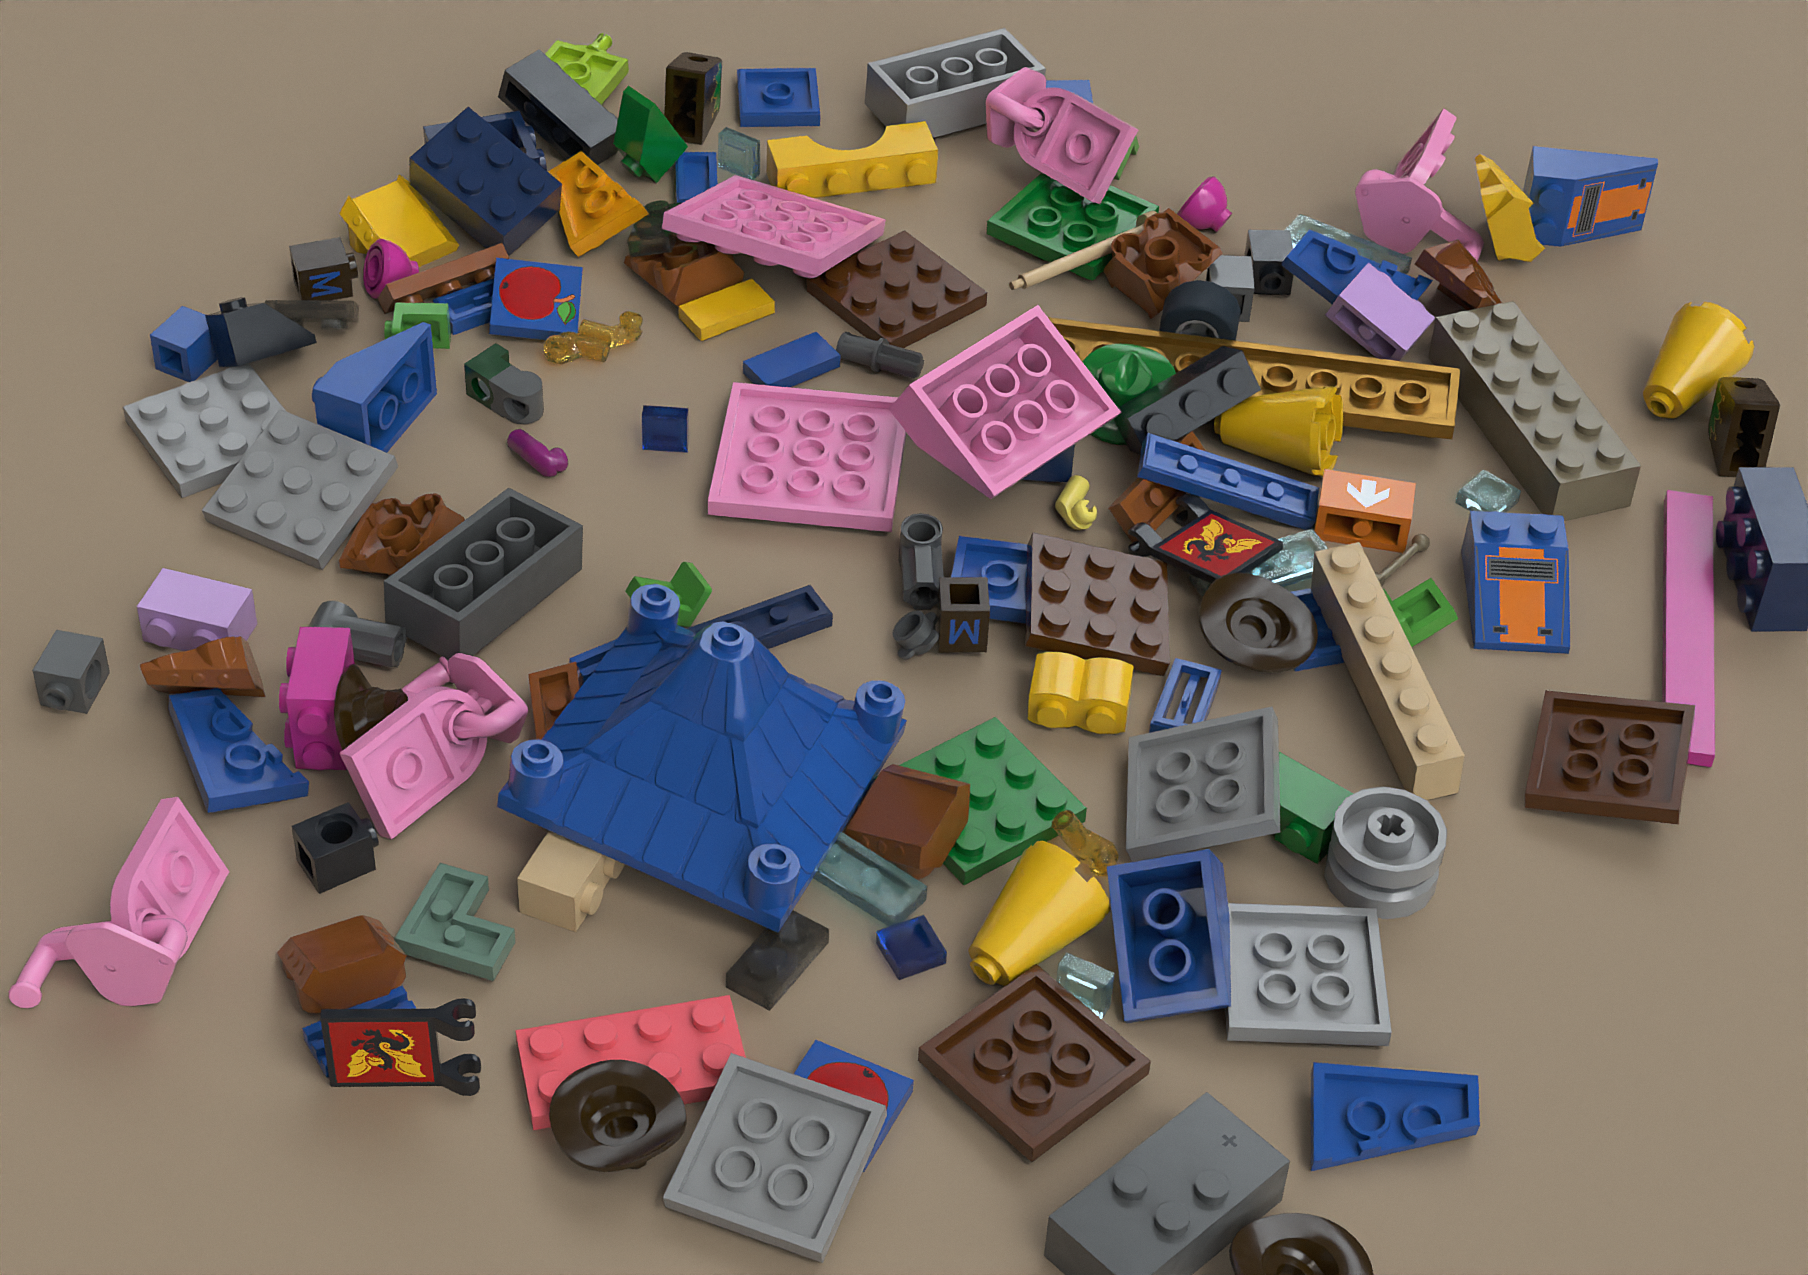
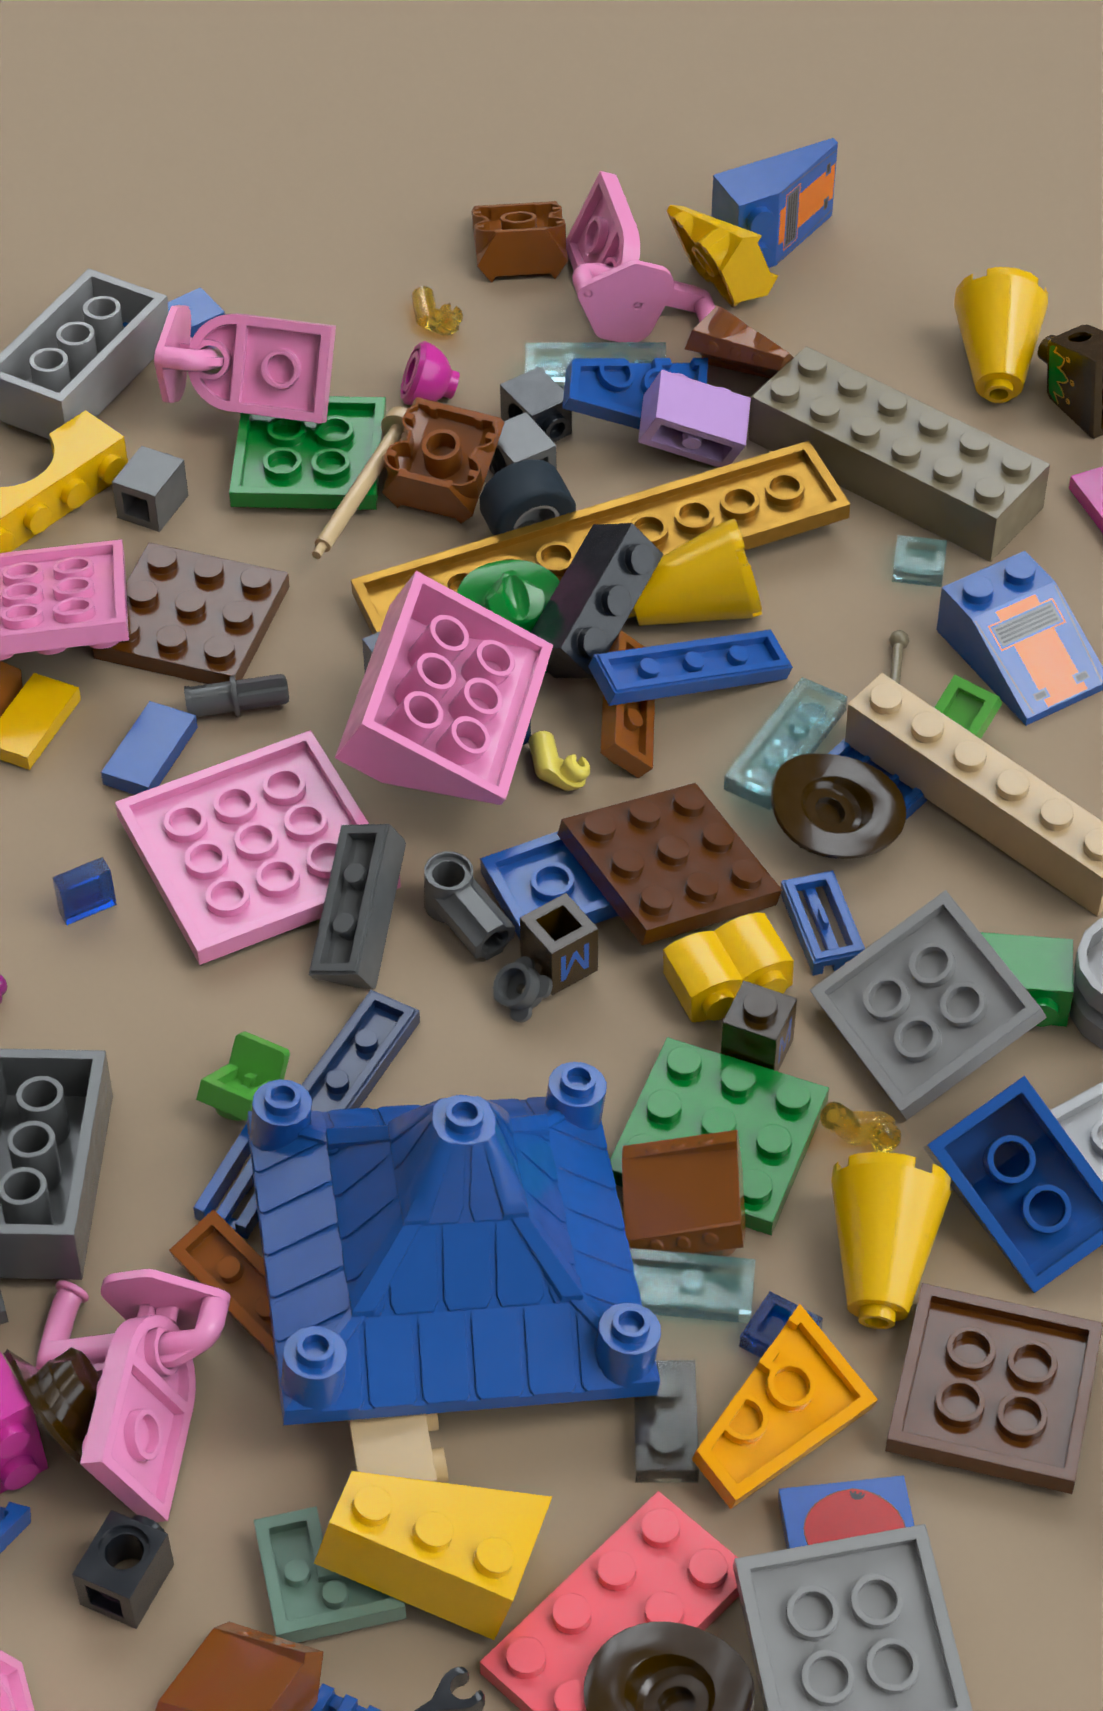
camera: 30 degrees left, 5 degrees up
(539, 935) = (435, 1545): none -> yellow wedge
(845, 525) = (358, 905): none -> dark grey slope
(865, 992) = (783, 1411): none -> light orange wing
(934, 195) = (150, 488): none -> dark grey brick
(1064, 740) = (759, 1026): none -> dark brown brick
(1086, 982) = (982, 1274): clear light blue tile -> none
(1207, 543) = (718, 744): flag -> none
(1250, 170) = (427, 315): none -> clear yellow arm
(1362, 142) = (520, 239): none -> dark orange slope
(1365, 510) = (833, 632): orange brick -> none

